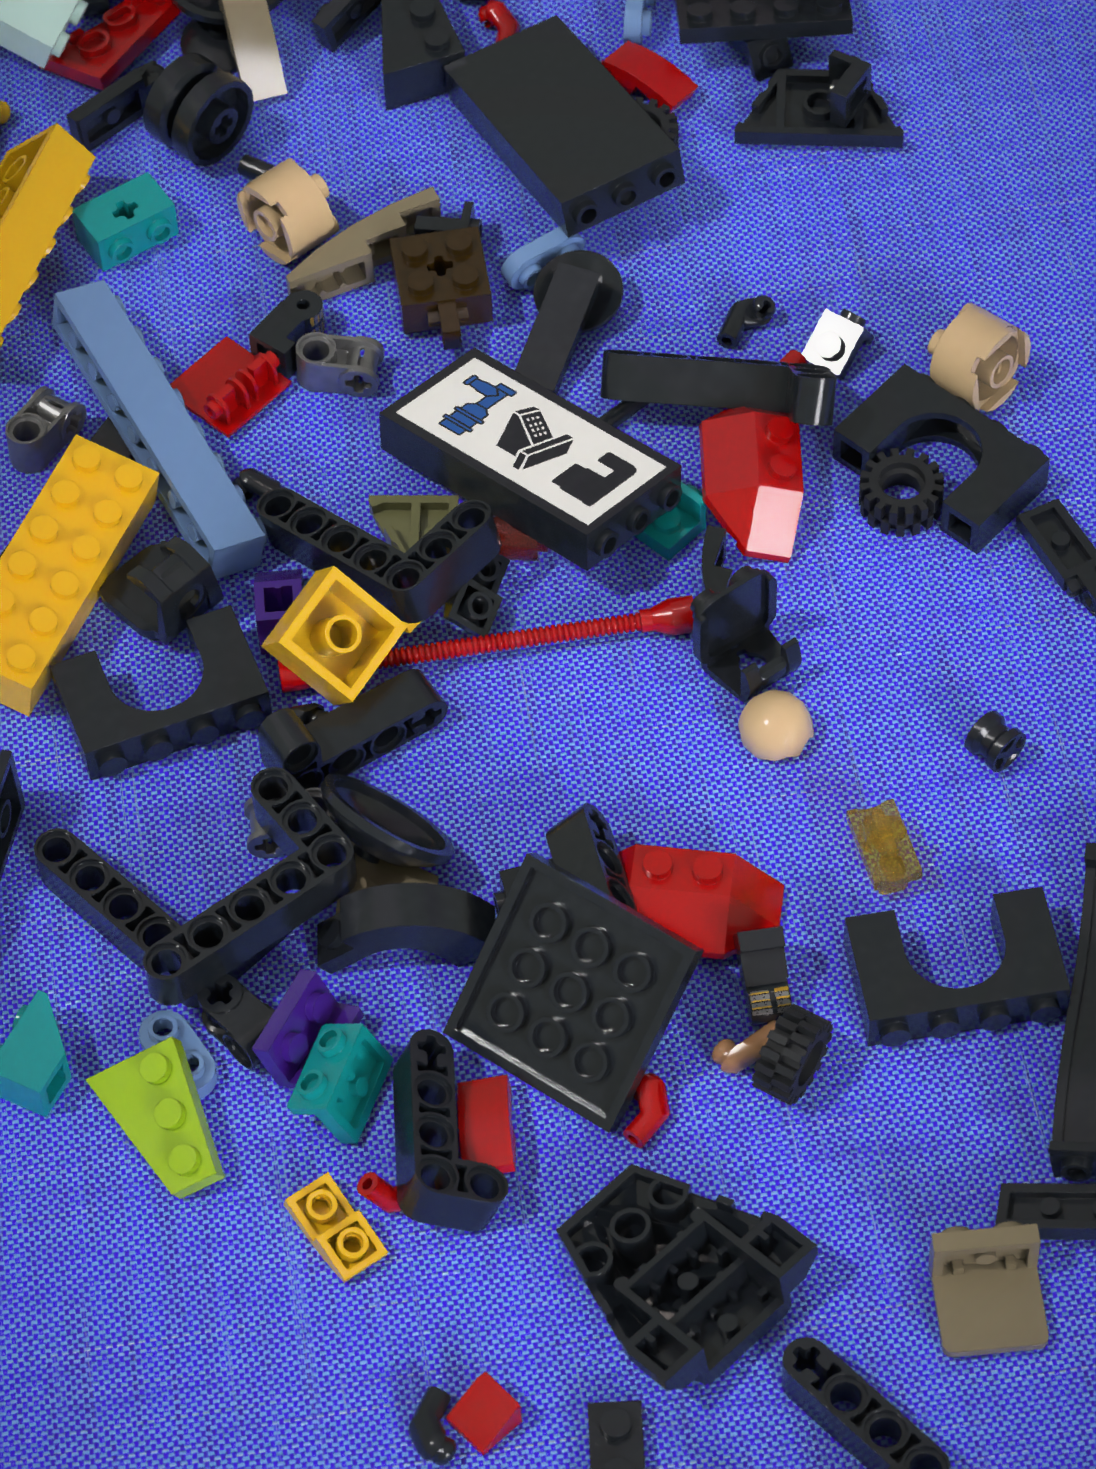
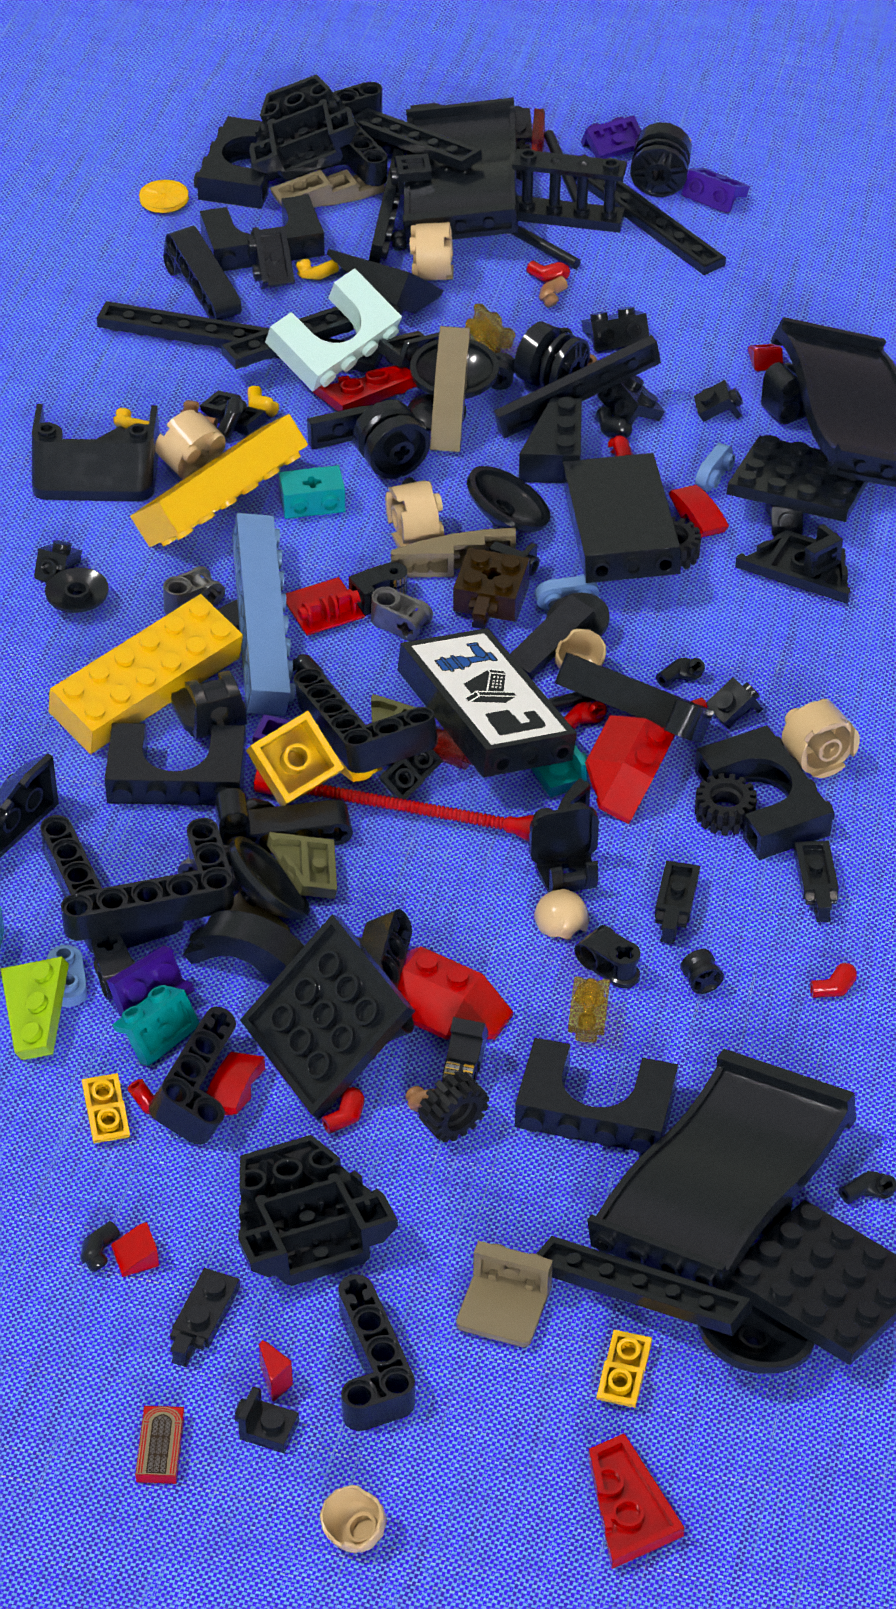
camera: 20 degrees right, 10 degrees down
(398, 147) = (507, 499): none -> black dish
(413, 773) = (306, 862): none -> olive wing
(607, 329) = (583, 644): none -> tan hair
(657, 423) = (586, 713): none -> red arm
(866, 758) = (610, 956): none -> black piece
(908, 648) = (676, 898): none -> black hinge

